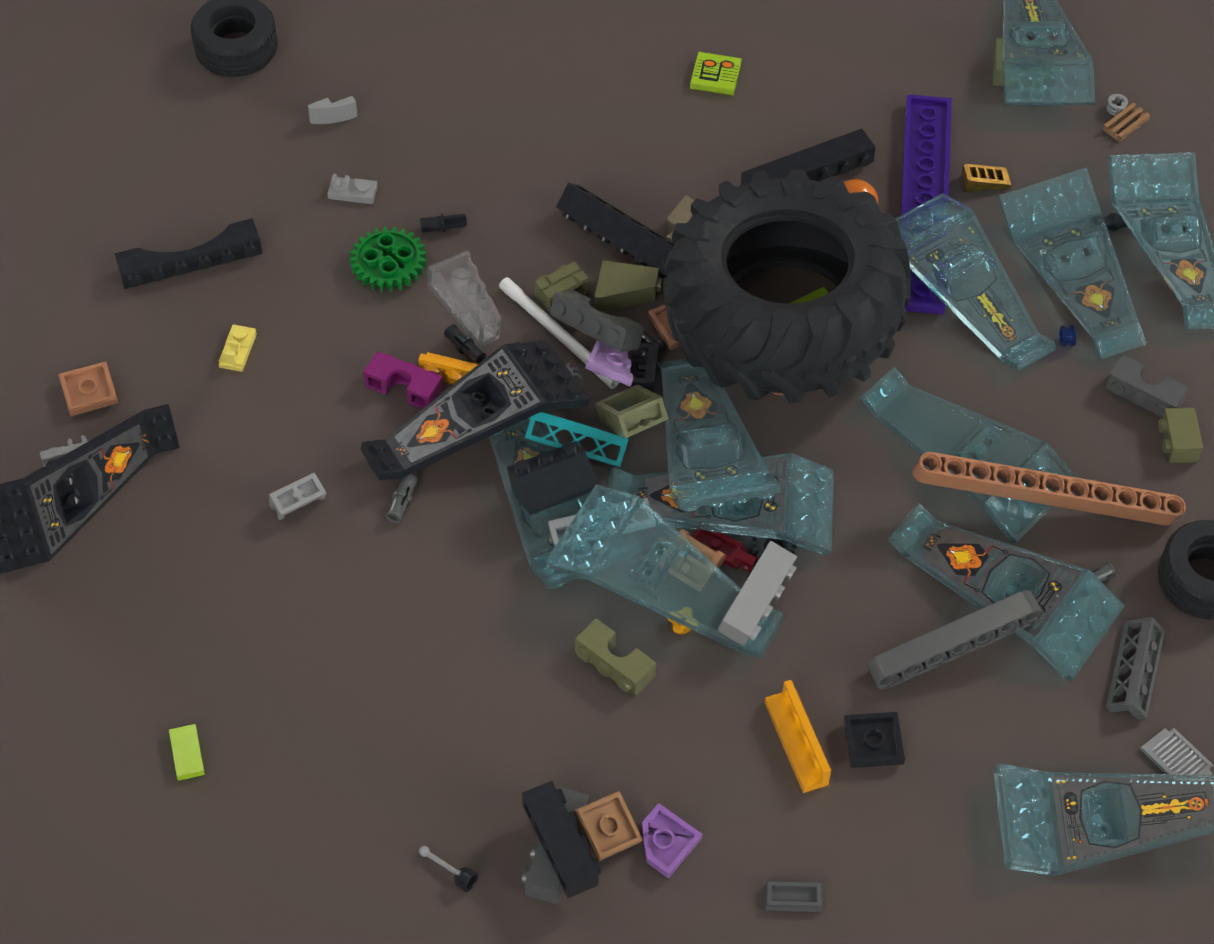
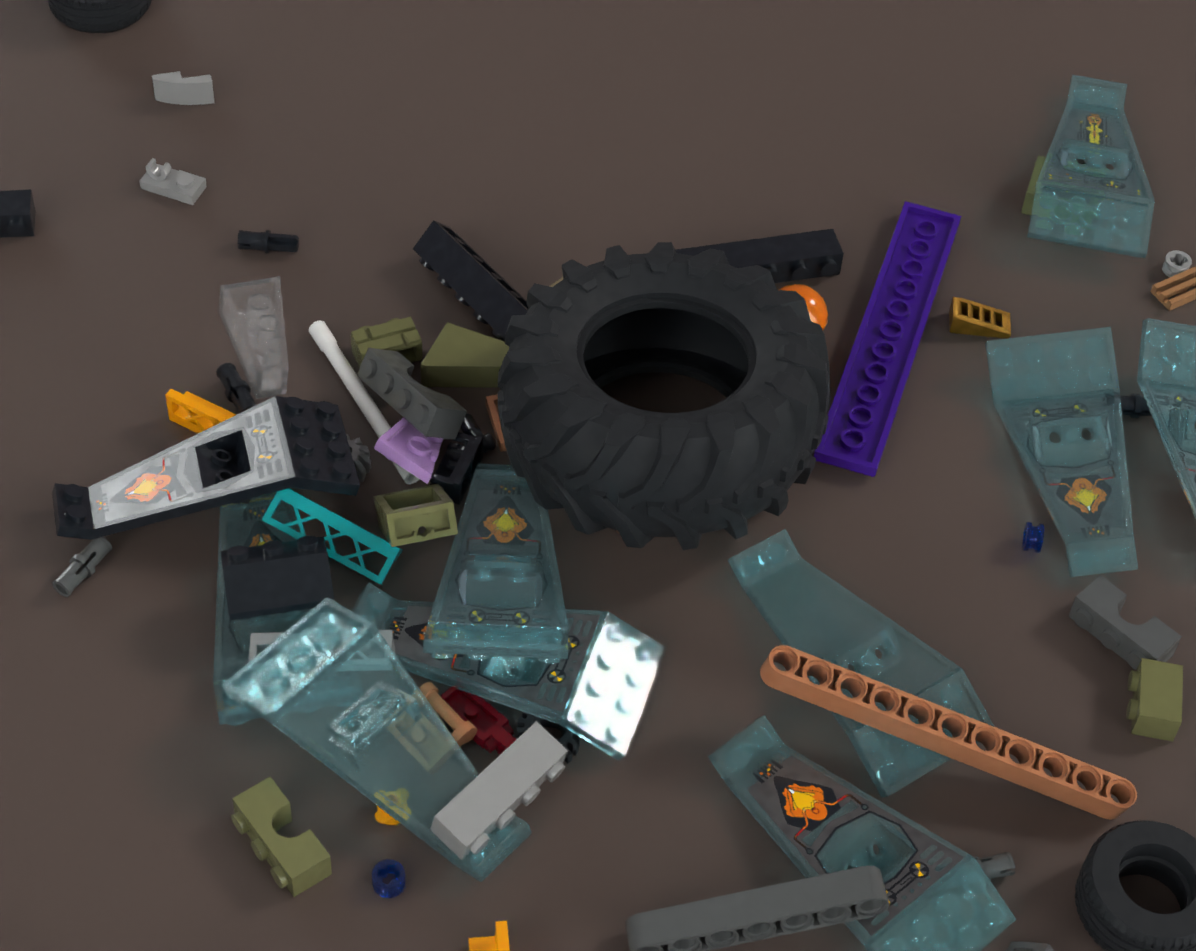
camera: 10 degrees right, 5 degrees down
(387, 371) = (126, 404): magenta arch -> none
(388, 259) = (181, 270): green gear -> none
(689, 670) = (381, 871): none -> clear blue bush
(716, 73) = (671, 134): lime tile -> none
(964, 271) = (911, 420): clear light blue wing -> none

